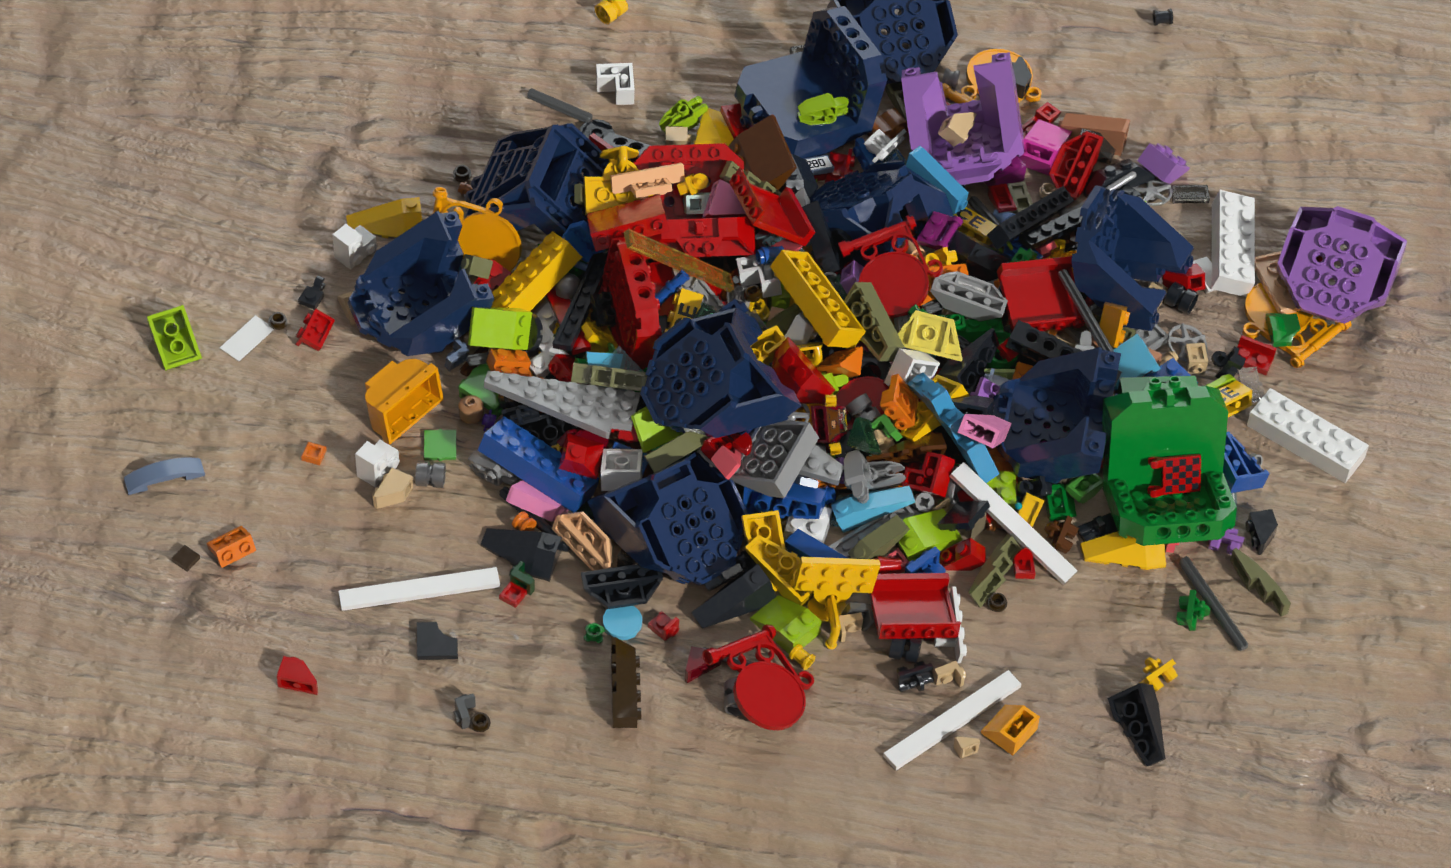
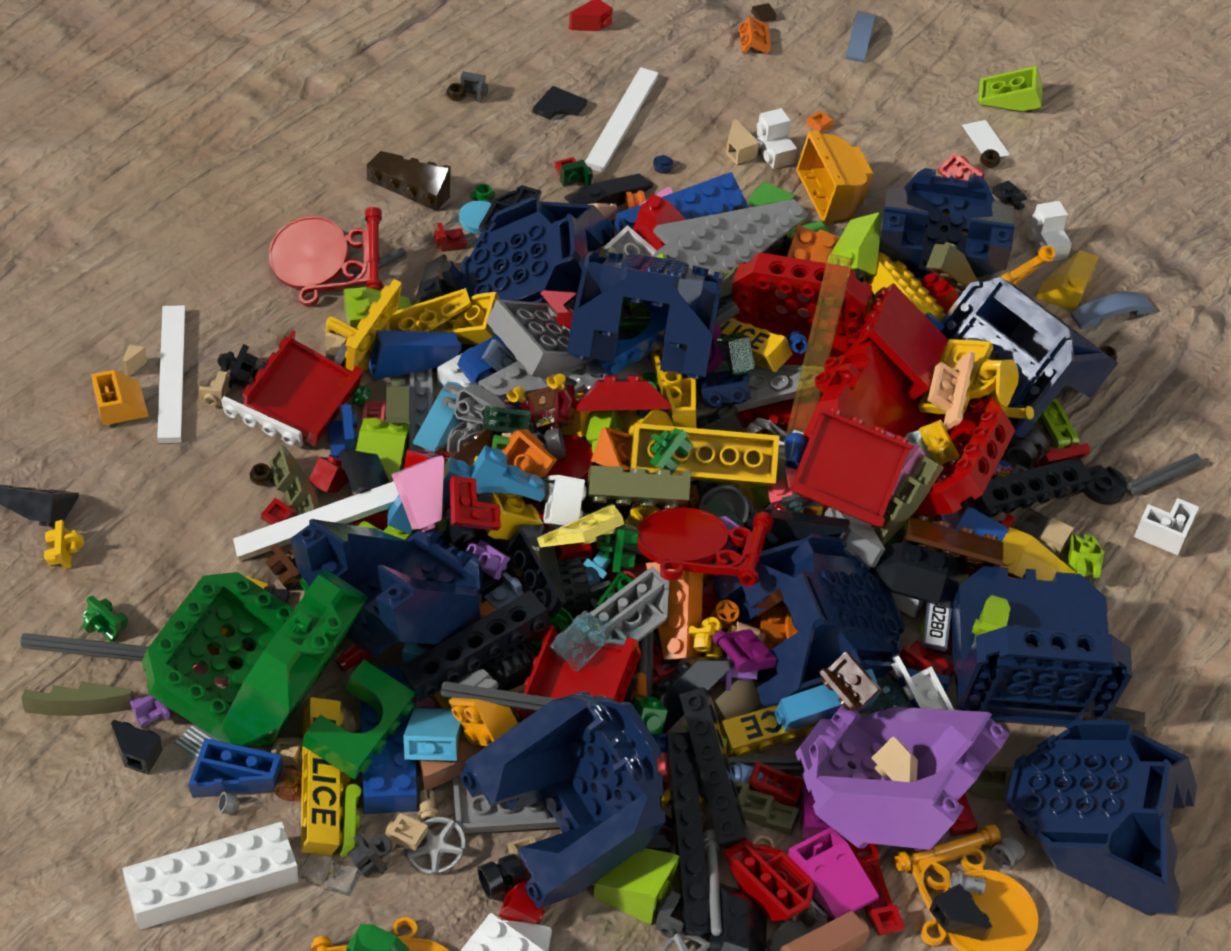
camera: 120 degrees right, 5 degrees down
(405, 184) = (1111, 305): none -> sand blue slope
(430, 474) = (740, 164): flat silver wheel -> none
(457, 531) = (662, 164): none -> dark blue plate
(696, 666) = (391, 236): dark red slope -> none
(802, 657) = (333, 304): yellow bush -> none
(844, 303) = (666, 446): none -> green hips
(888, 565) = (372, 401): red cone -> none
(932, 157) = (850, 682): none -> bracket
(976, 396) = (466, 509): none -> red plate
(1017, 304) = (581, 640): none -> clear light blue bracket
(1179, 474) = (251, 656): red flag -> none
(1256, 354) = (365, 904): red bracket -> none

